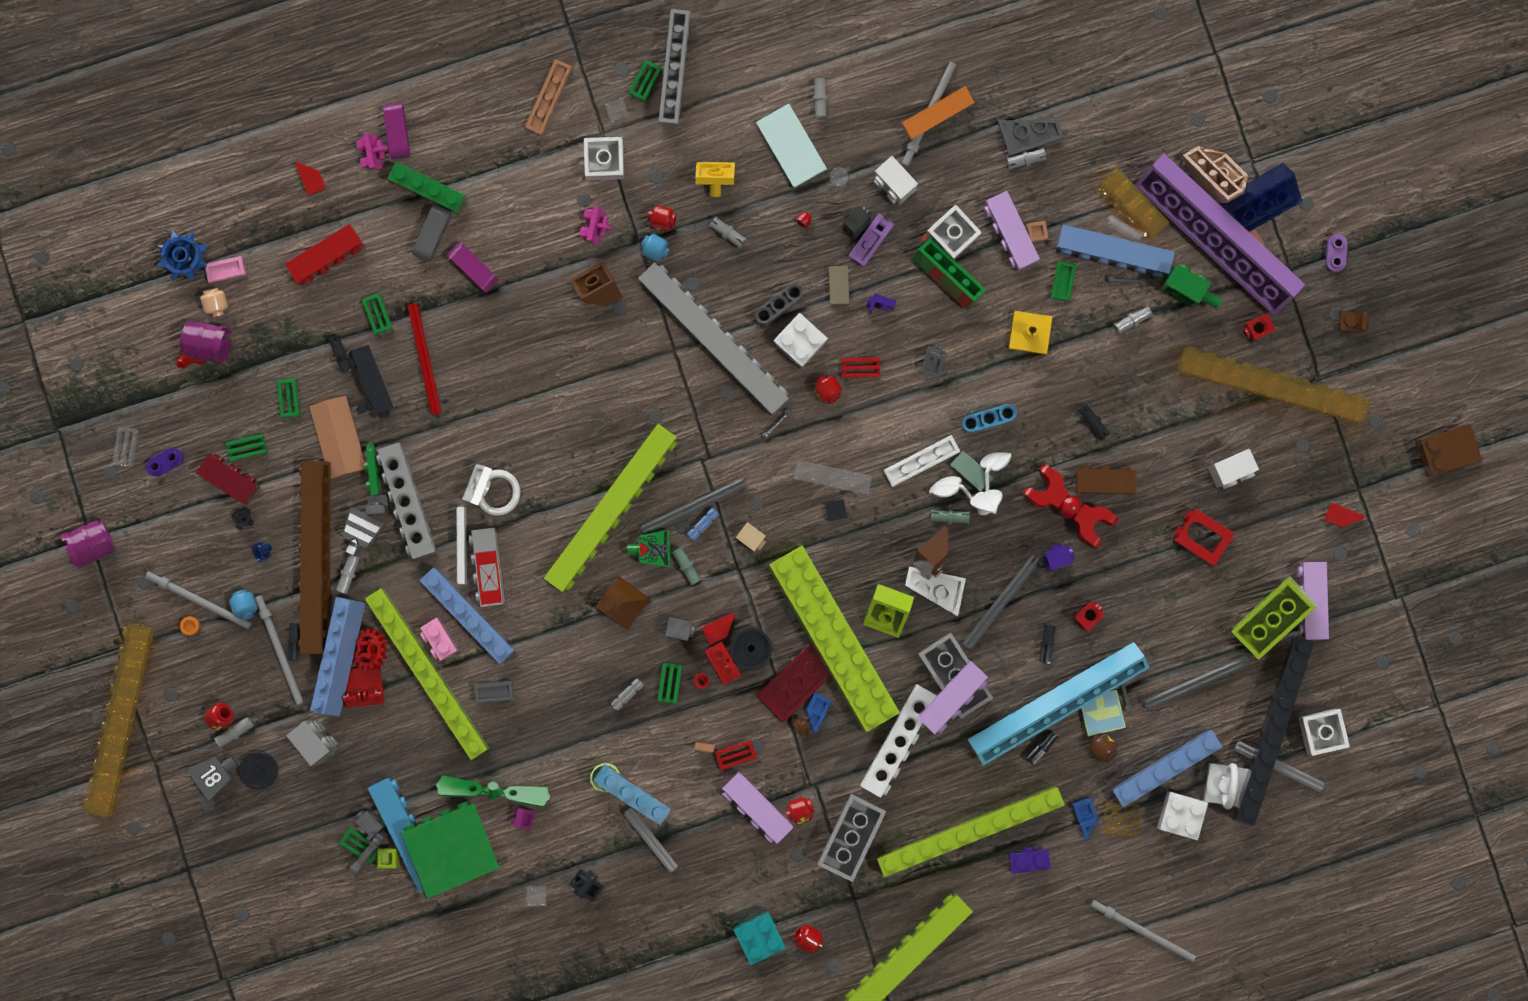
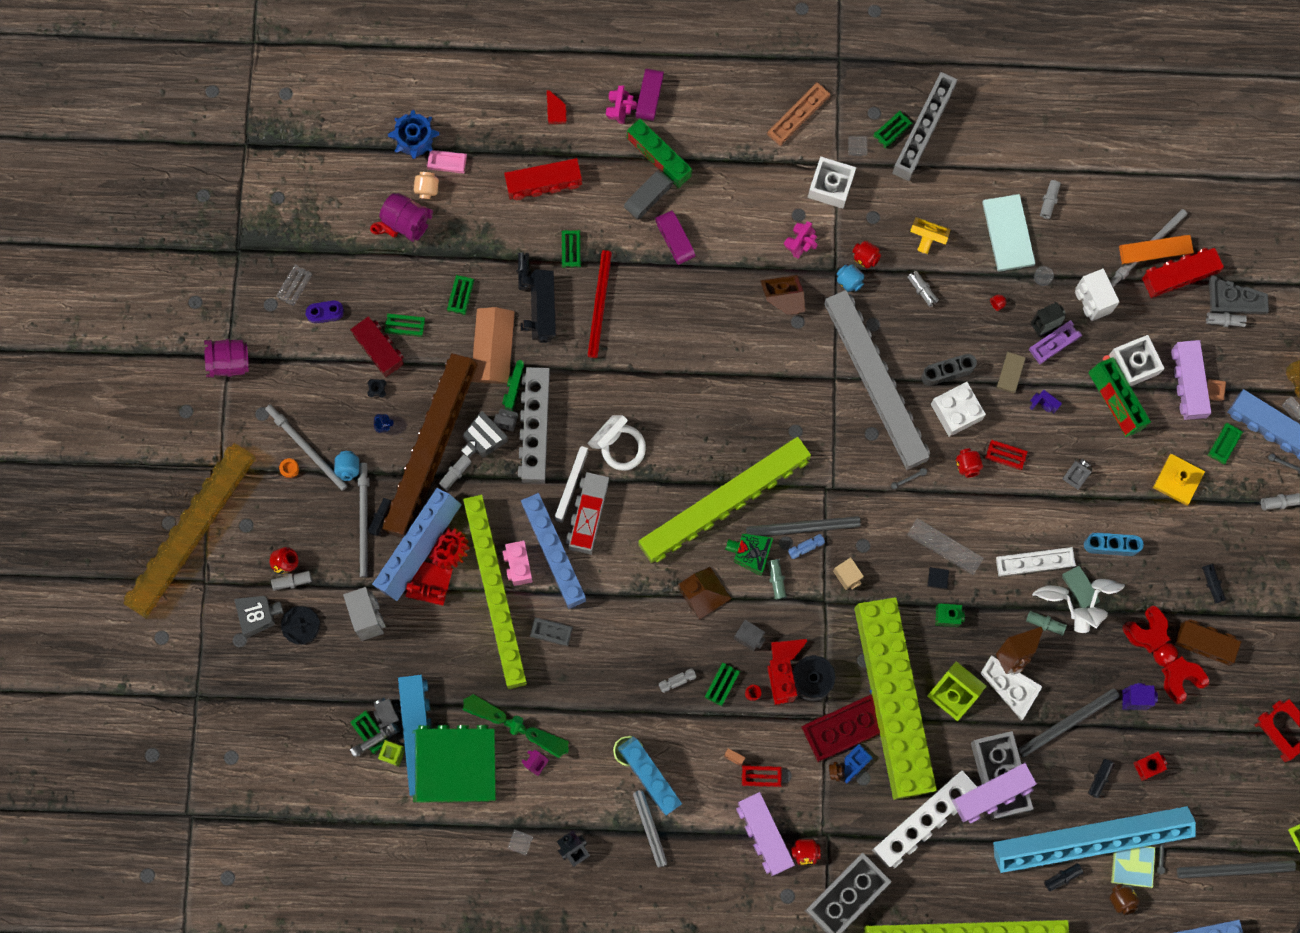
camera: 15 degrees right, 10 degrees down
(858, 542) = (949, 615): none -> green brick
(970, 126) = (1182, 272): none -> red brick

